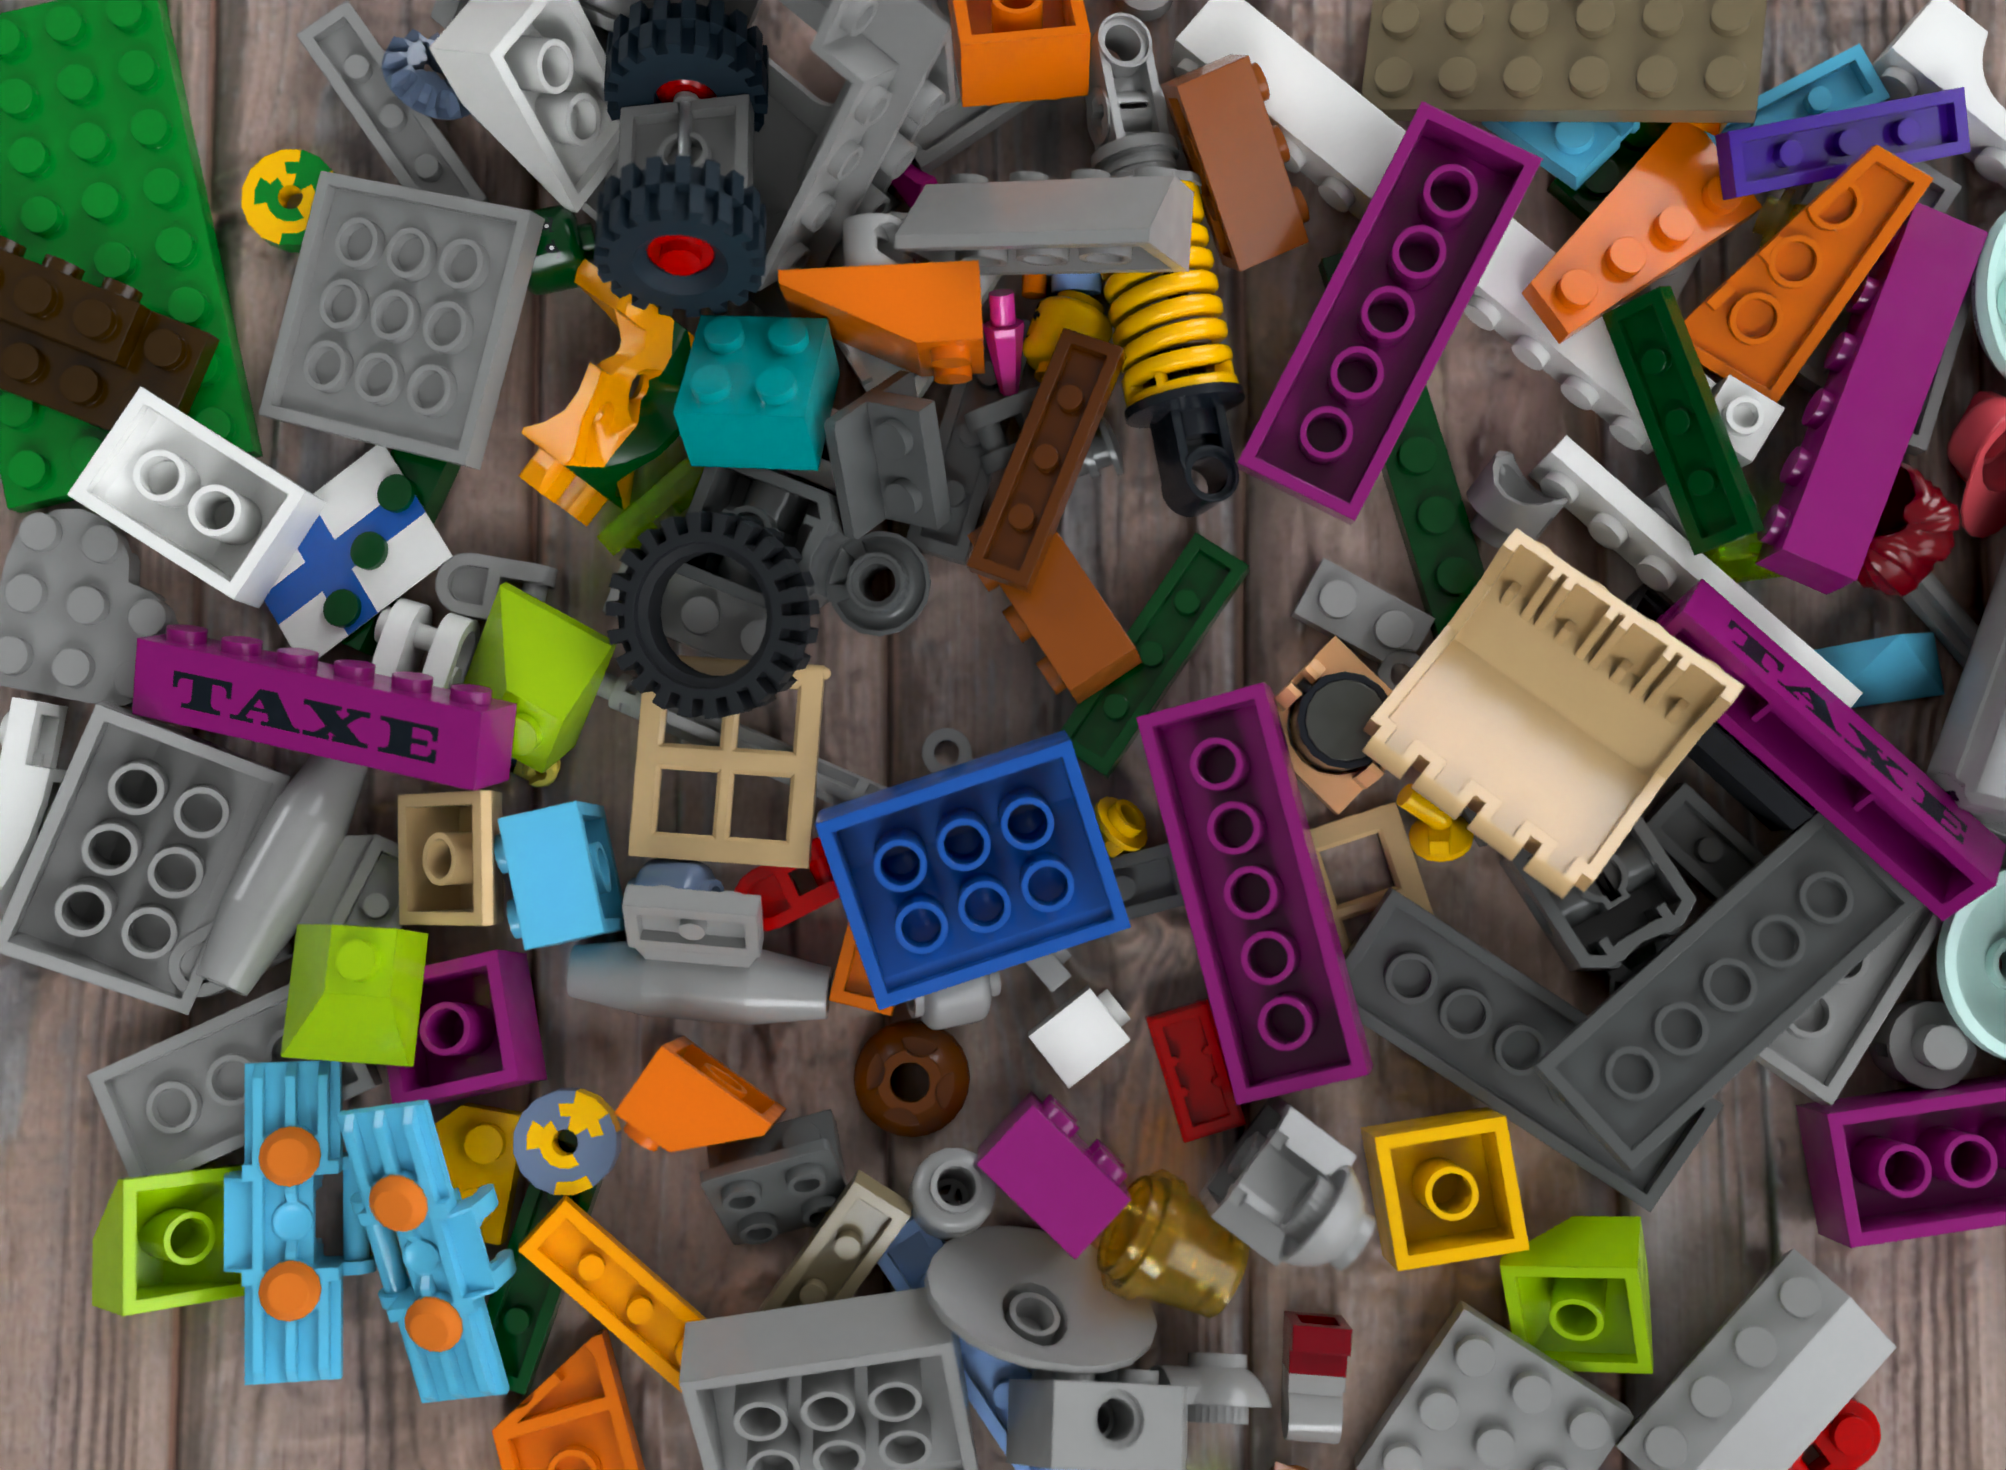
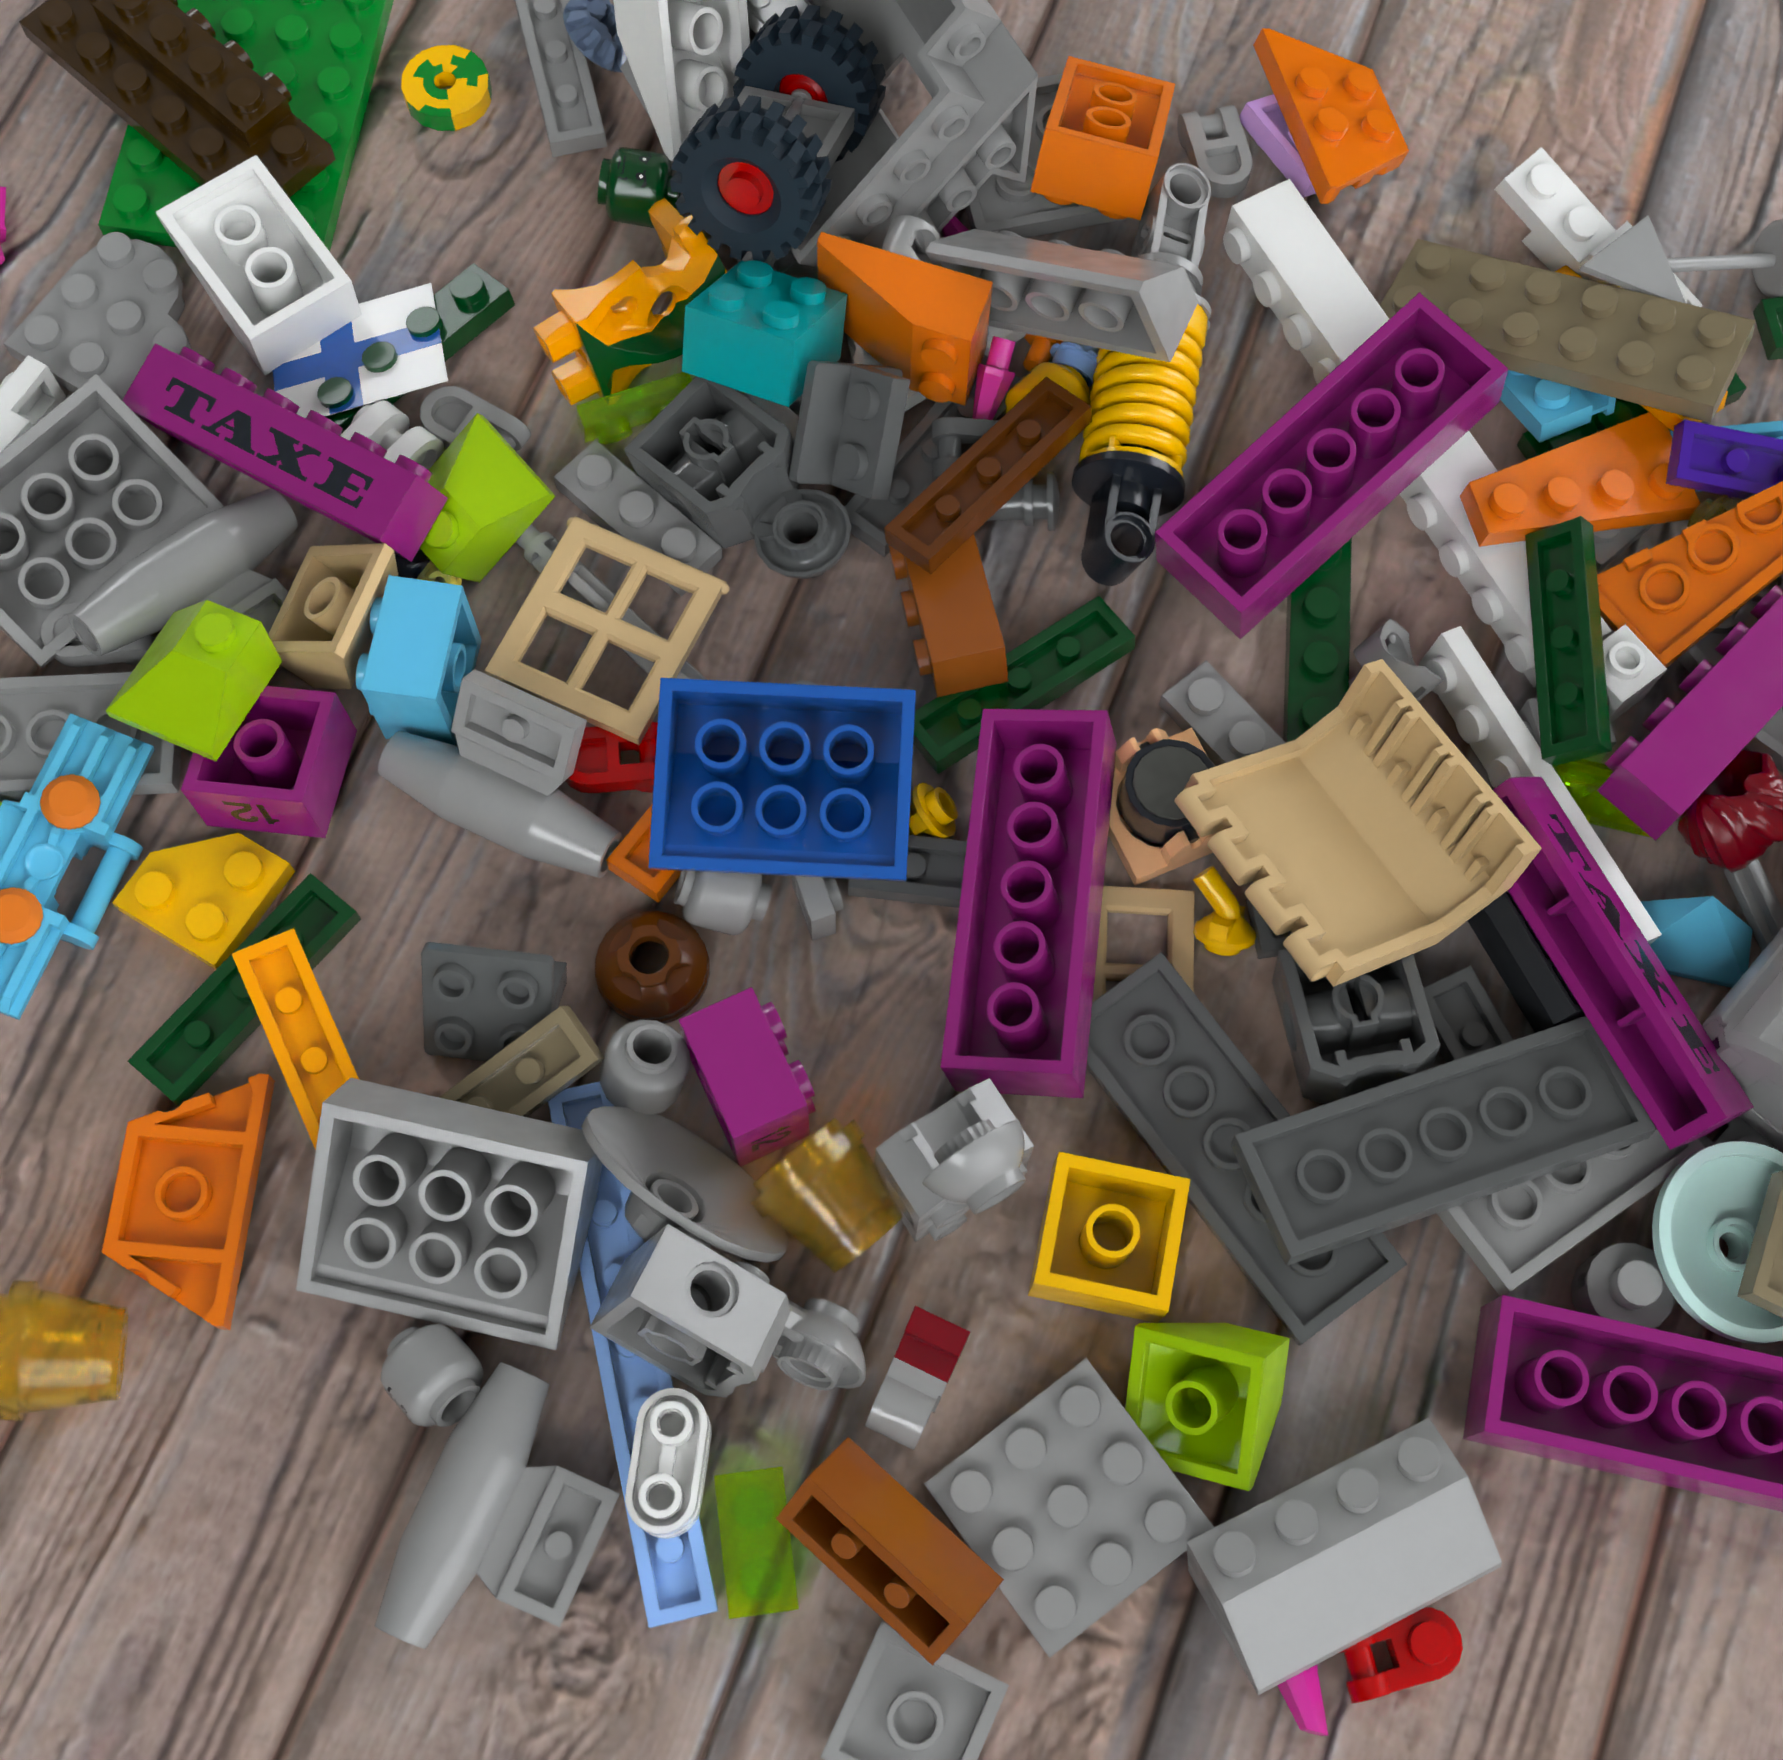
camera: 15 degrees right, 15 degrees down
(402, 317) = (492, 188): light grey plate -> none
(442, 1300) = (164, 932): medium azure piece -> none
(538, 1147) = (315, 862): sand blue piece -> none
(641, 623) = (614, 436): black tyre -> none
(693, 1102) = (442, 890): orange slope -> none
(1081, 1034) = (823, 978): white brick -> none
(1194, 1070) = (913, 1052): red plate -> none
(1239, 160) = (1249, 310): dark orange brick -> none

